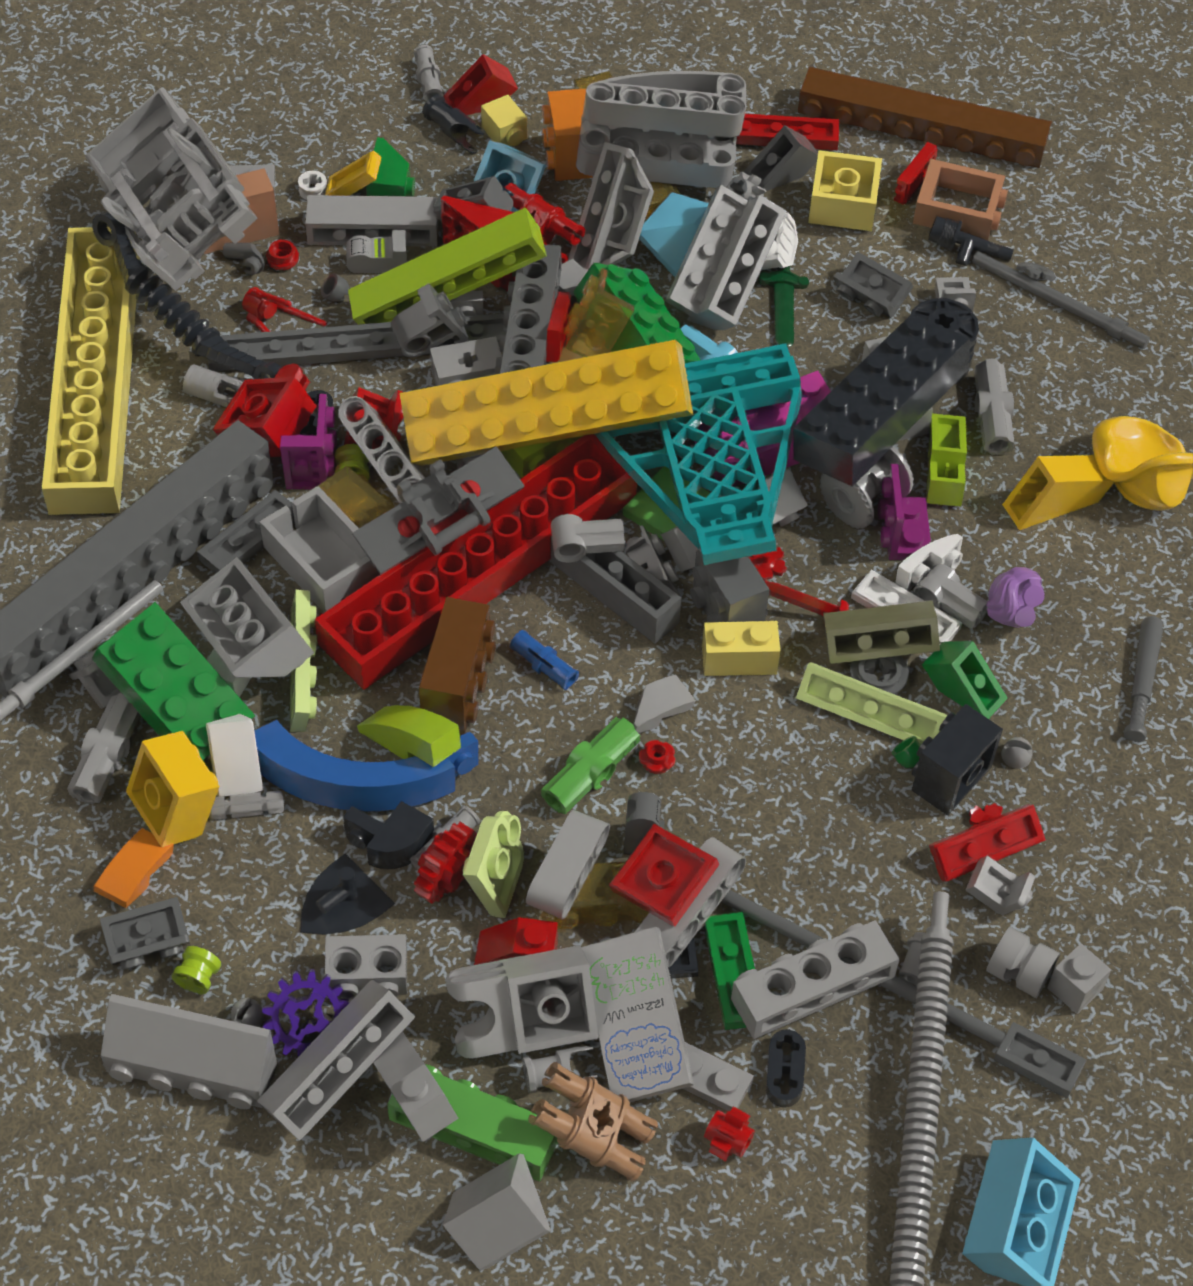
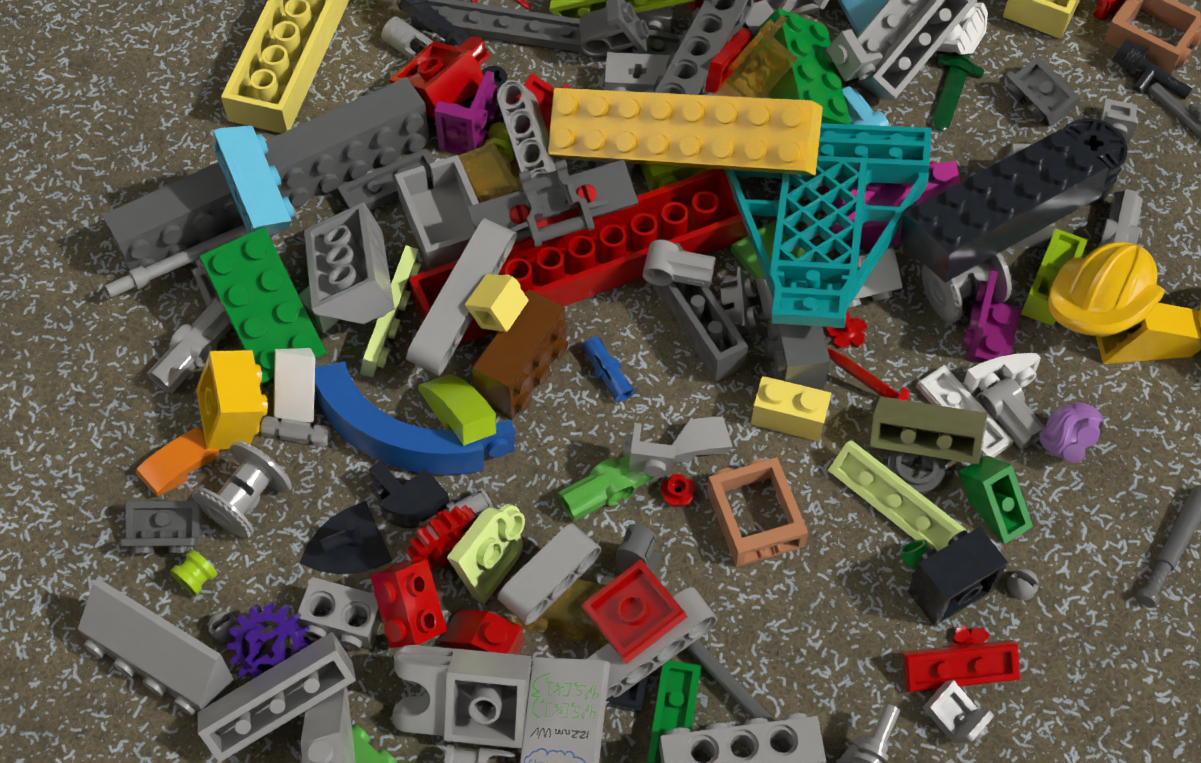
camera: 20 degrees right, 5 degrees up
(119, 560) = (251, 179): none -> medium azure slope
(212, 893) = (242, 489): none -> light grey hose
(379, 622) = (448, 315): none -> light grey beam
(421, 616) = (496, 302): none -> light yellow brick
(435, 932) = (406, 600): none -> red brick
(622, 728) = (648, 457): none -> light grey bracket
(681, 294) = (851, 58): none -> light grey bracket
(760, 783) = (765, 543): none -> nougat window
(1003, 456) = (1105, 290): none -> yellow piece

